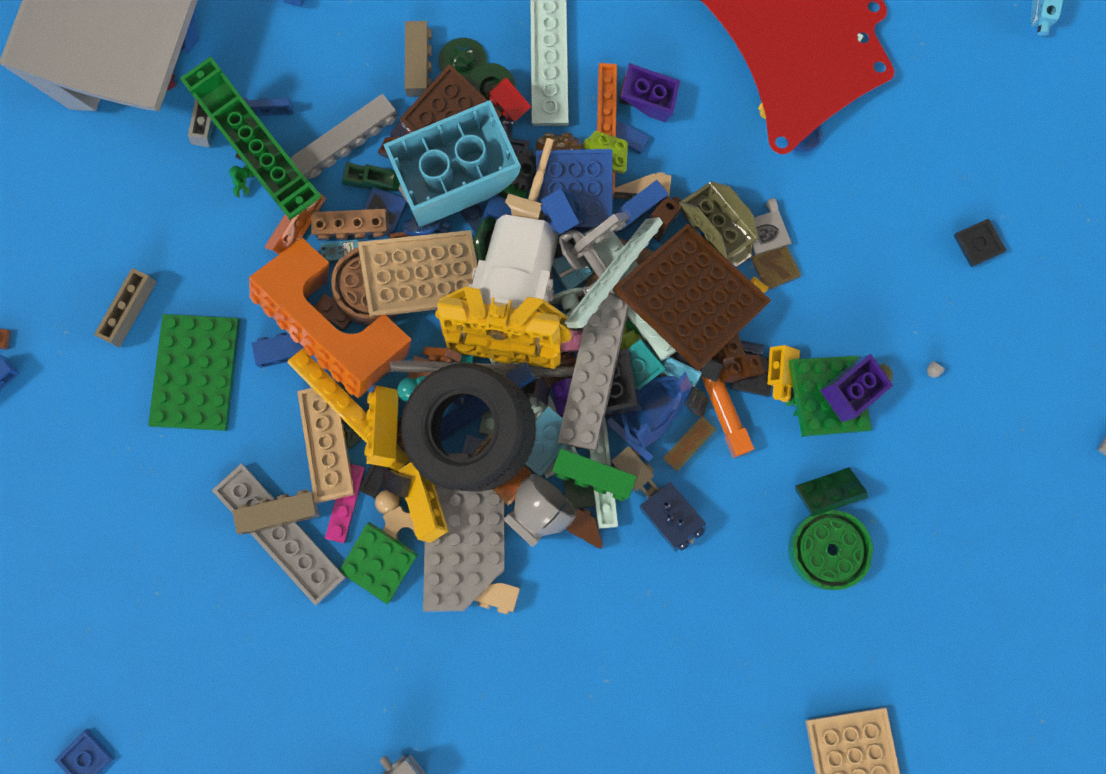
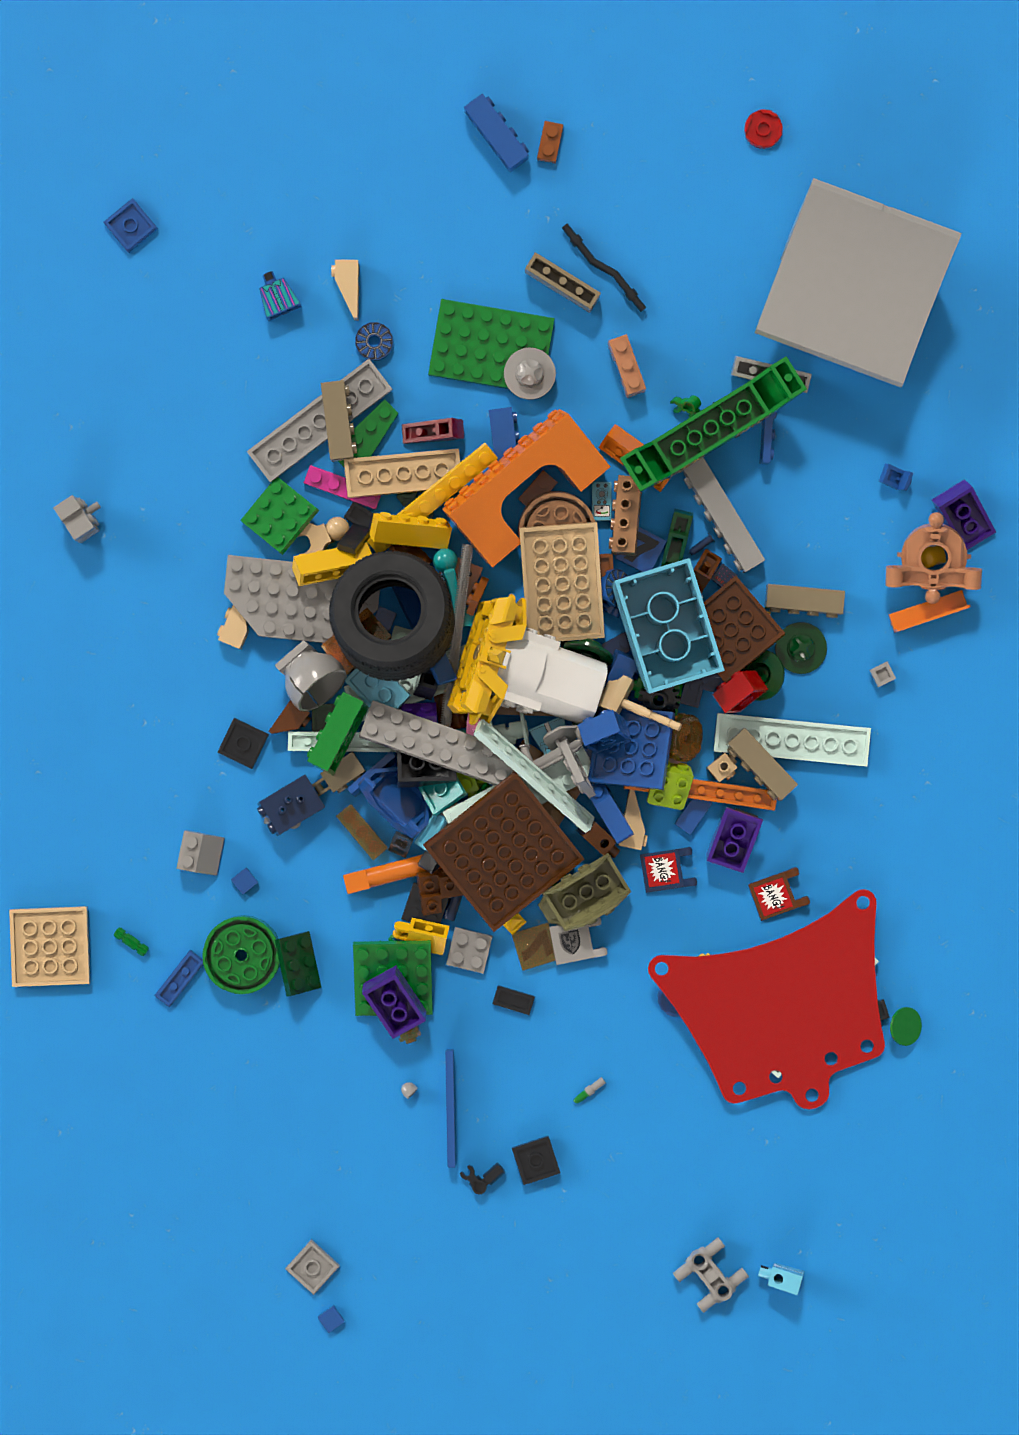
camera: 95 degrees right, 10 degrees up
(86, 301) = (576, 241): none -> black bar
(134, 521) = (347, 278): none -> tan slope
(153, 591) = (277, 297): none -> torso
(184, 484) = (370, 330): none -> tile
(193, 243) = (627, 366): none -> nougat arch
(217, 330) = (529, 373): none -> light grey hat
(281, 418) = (433, 431): none -> dark red slope
(284, 479) = (373, 429): none -> green wing
(373, 155) = (702, 544): none -> dark blue piece
(576, 75) = (761, 764): none -> dark tan brick
(582, 114) = (723, 767): none -> tan brick
(615, 575) = (243, 743): none -> black tile
(686, 157) = (664, 871): none -> flag
(694, 58) = (774, 894): none -> flag
(733, 605) = (200, 852): none -> light grey slope
(754, 557) = (244, 881): none -> blue tile
(789, 328) = (469, 950): none -> light grey plate
(830, 281) = (513, 1000): none -> black tile
(834, 668) = (131, 941): none -> green axle
(863, 612) = (179, 978): none -> blue tile
(904, 202) = (589, 1090): none -> light grey piece
(946, 327) = (450, 1108): none -> blue tile
(1013, 292) = (478, 1184): none -> black bar
(1064, 65) = (710, 1275): none -> light grey piece

